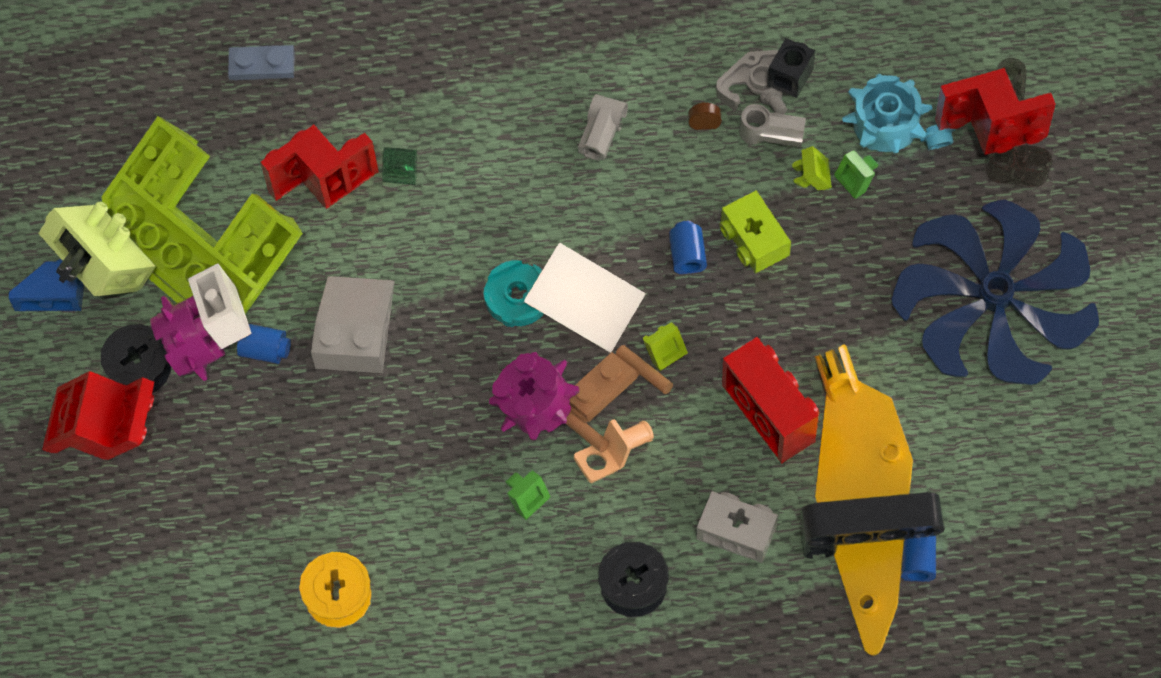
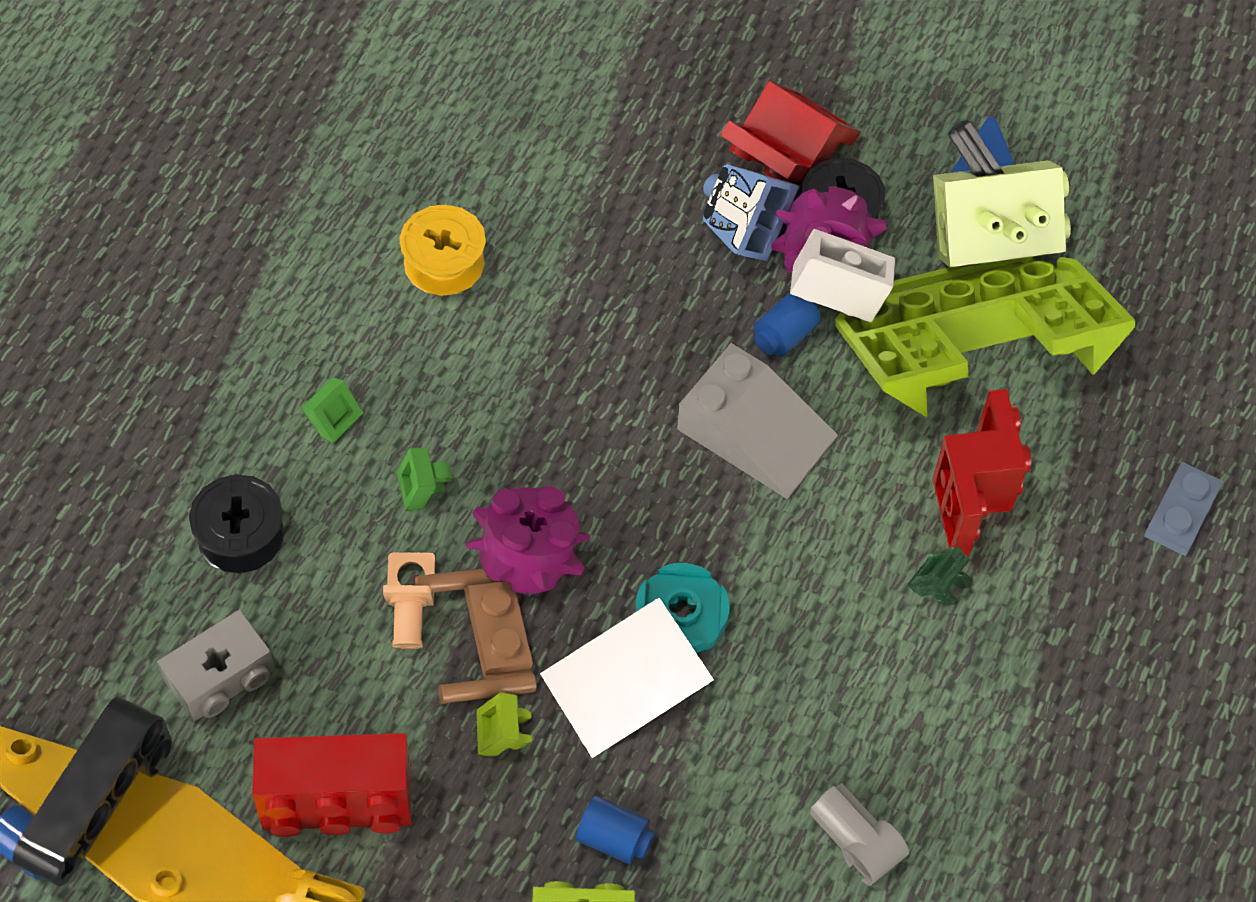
camera: 115 degrees right, 5 degrees down
(186, 407) = (744, 209): none -> medium blue torso
(509, 580) = (332, 409): none -> bright green tile

